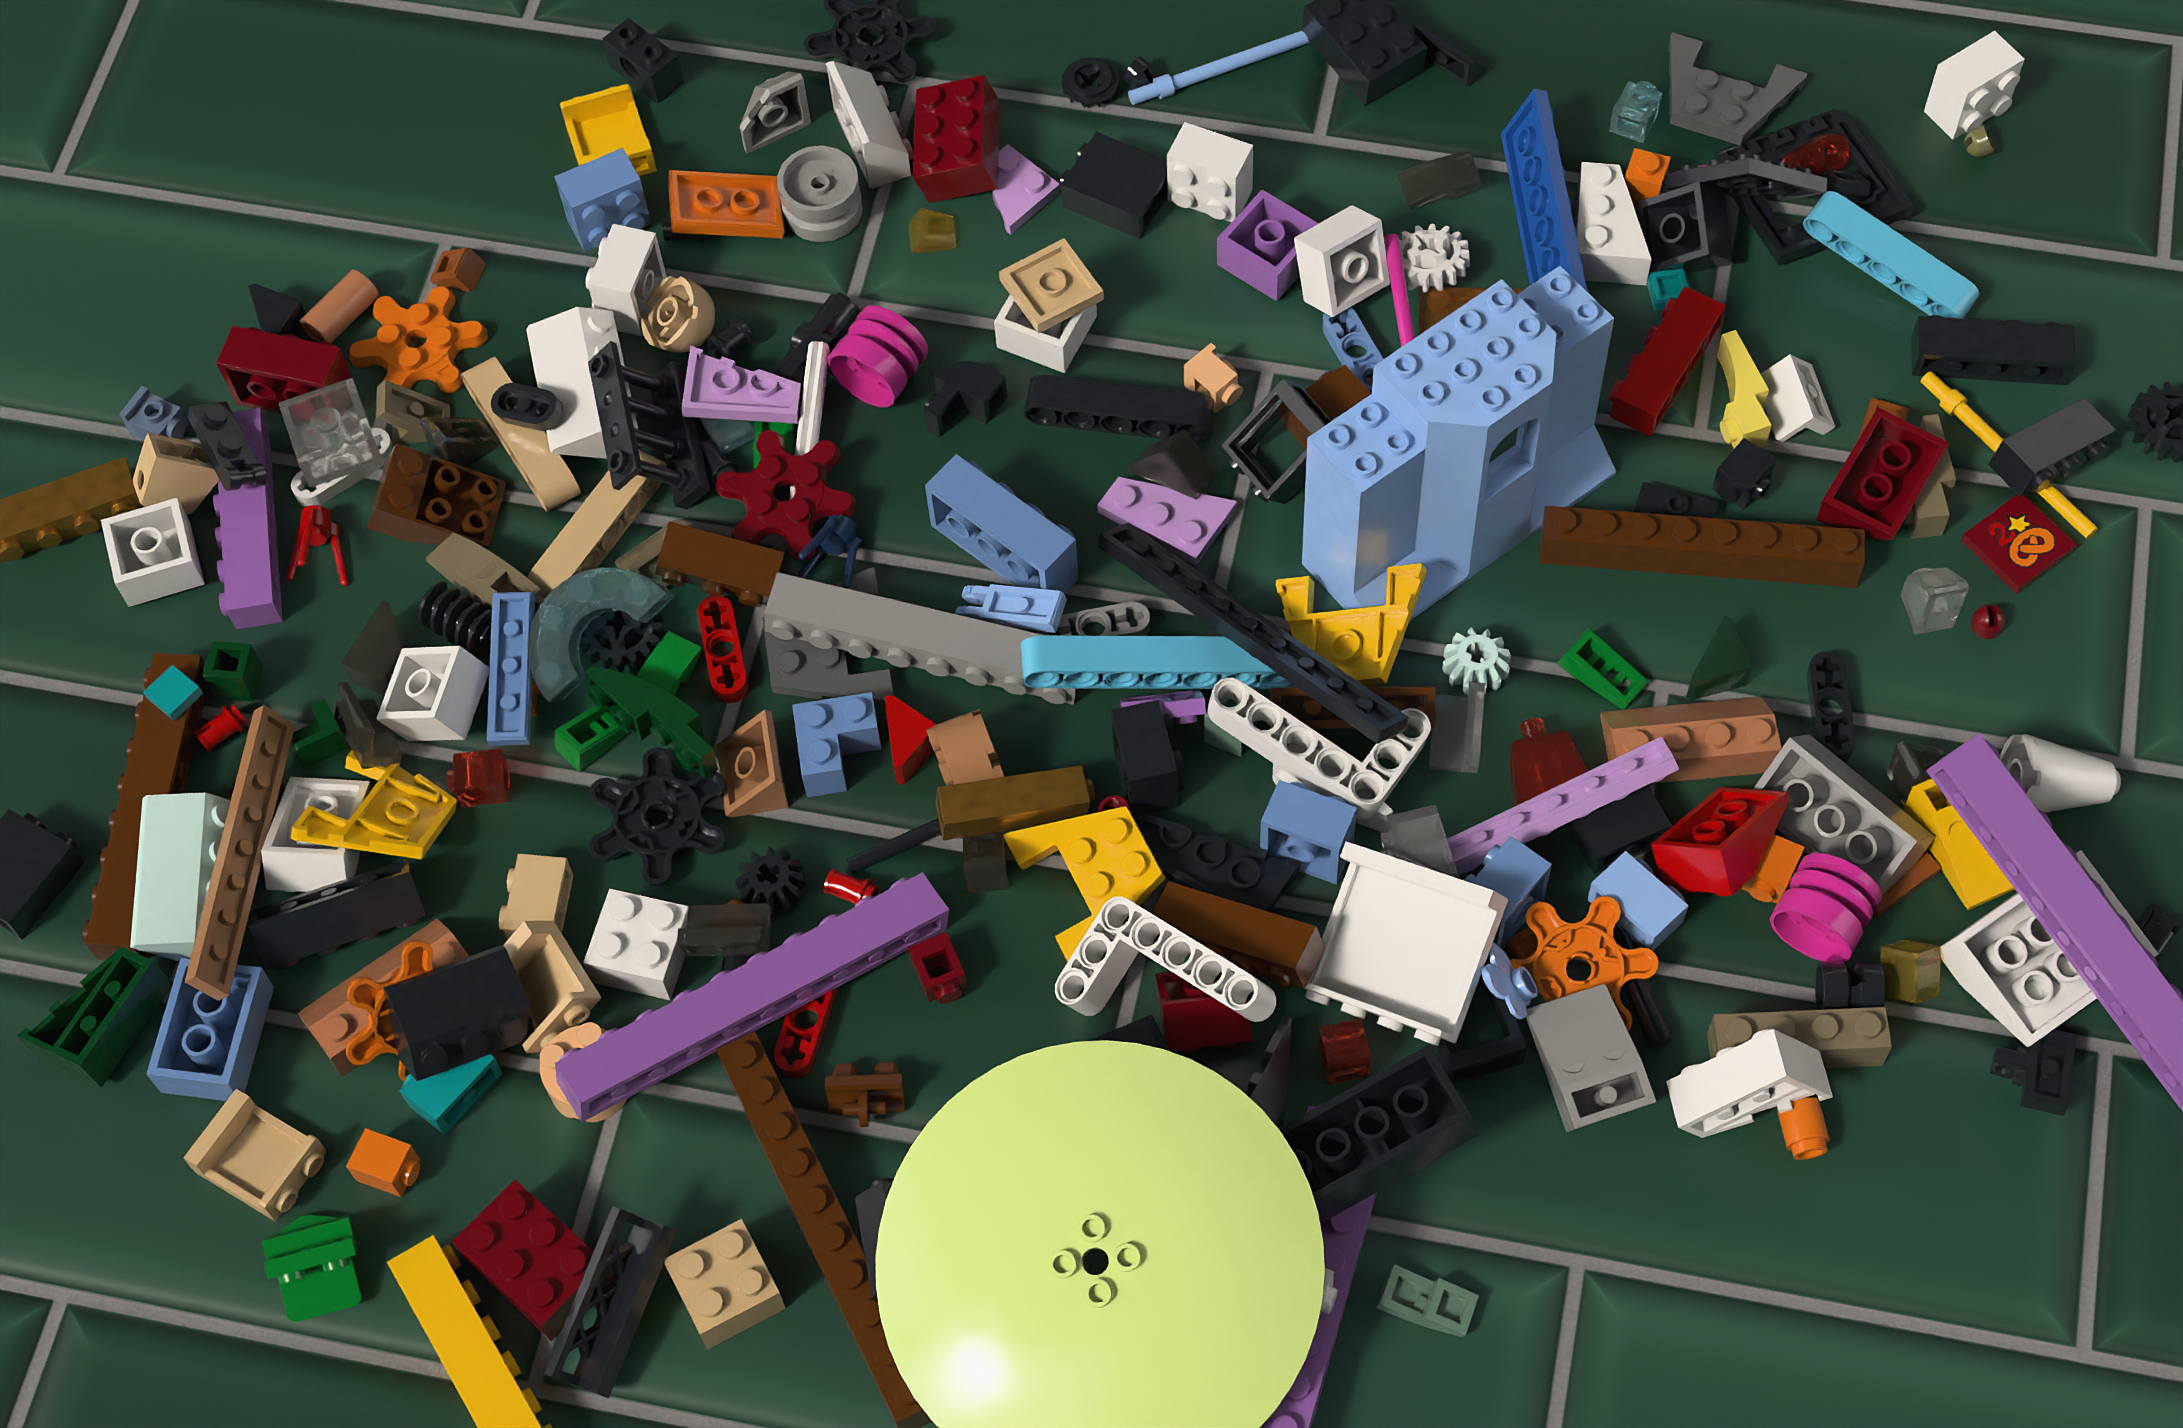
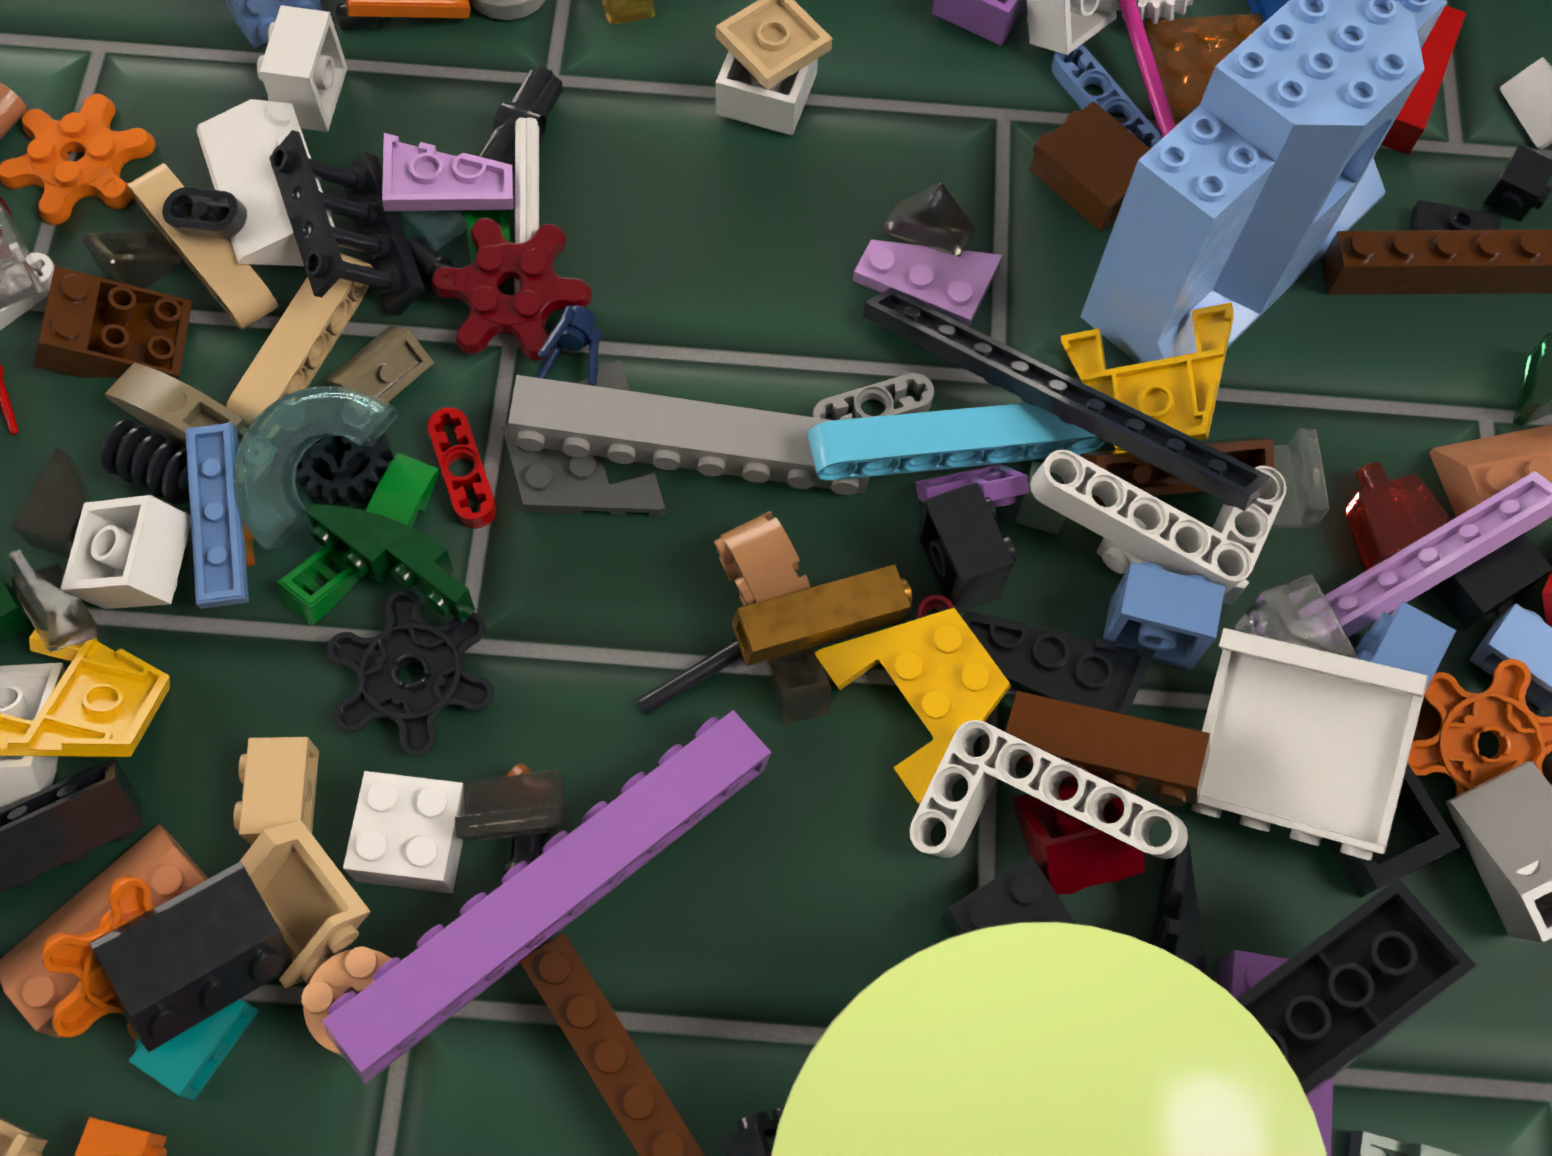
camera: 15 degrees left, 5 degrees up
(405, 410) = (64, 229): dark tan slope -> none
(458, 269) = (115, 75): dark orange slope -> none
(480, 777) = (194, 646): clear red brick -> none
(678, 315) = (365, 103): tan cylinder -> none
(718, 564) = (446, 372): reddish brown brick -> none
(730, 339) = (426, 125): black bush -> none
(752, 768) = (514, 603): medium nougat slope -> none
(781, 871) = (560, 721): black gear -> none
(808, 1050) = (625, 939): red beam -> none
(828, 732) = (598, 551): medium blue brick -> none
(849, 887) = (648, 734): red pin -> none
(865, 1094) = (704, 992): reddish brown hips -> none
(877, 356) = (592, 129): dark pink wheel -> none
(907, 737) = (688, 548): red slope -> none
(935, 957) = (763, 807): dark red brick -> none
(964, 388) = (691, 158): black brick -> none
(1001, 528) = (760, 307): medium blue brick -> none
(1014, 606) = (785, 390): light blue hinge -> none
(1117, 407) = (856, 166): black beam -> none
(1212, 377) = (952, 129): light nougat brick -> none
(1239, 445) = (1020, 164): black window -> none
(1344, 1051) = (1251, 871): clear red brick -> none
(1474, 647) = (1293, 404): light aqua gear -> none
(1509, 983) = (1433, 775): light blue plate -> none
(1601, 651) = (1403, 403): green slope -> none
(1747, 391) = (1499, 101): light yellow slope -> none

